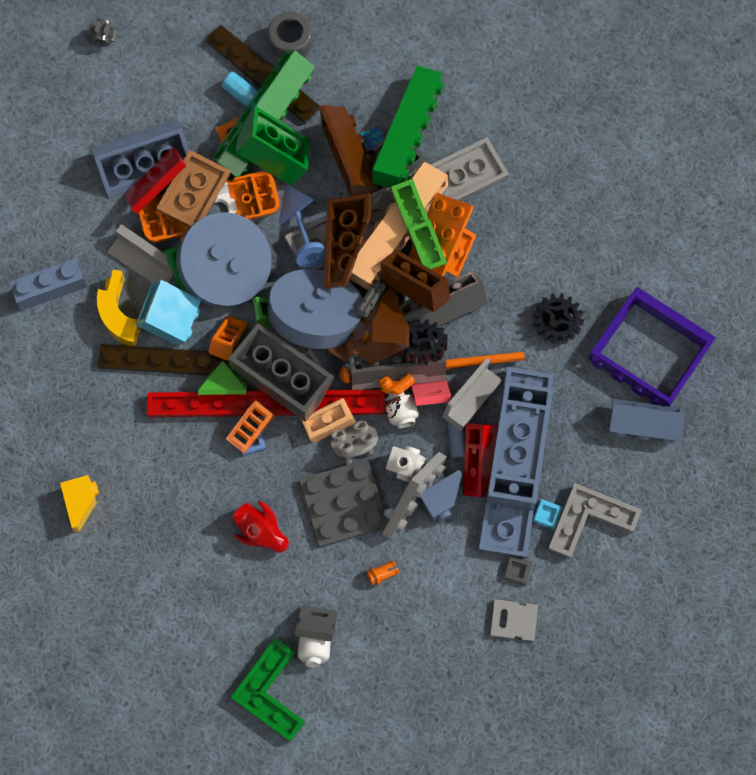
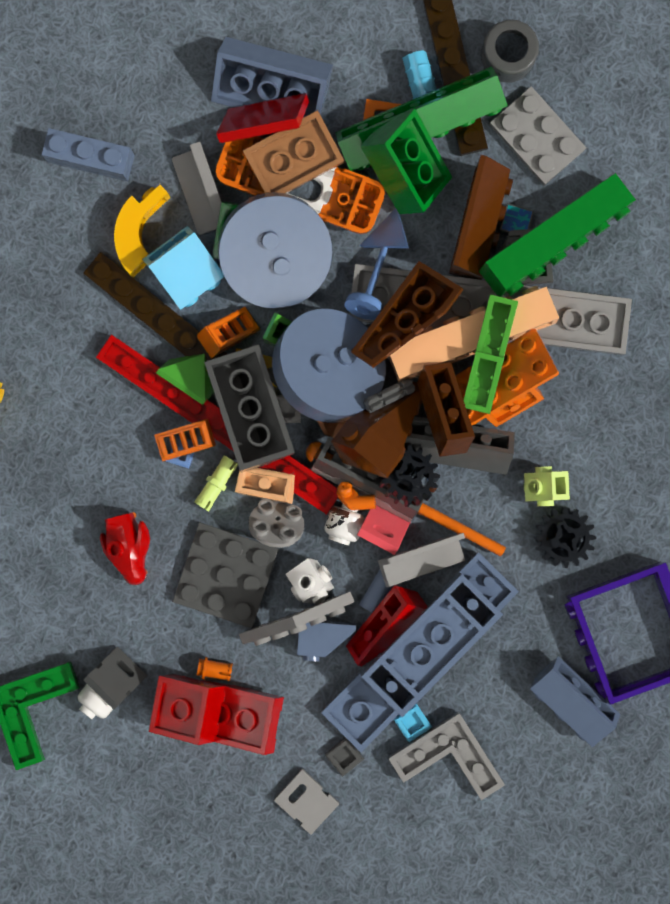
camera: 40 degrees right, 15 degrees up
(292, 444) = (216, 483): none -> yellowish green pin
(348, 78) = (537, 136): none -> light grey plate
(405, 598) = (216, 713): none -> red piece
(520, 292) = (546, 486): none -> yellowish green brick

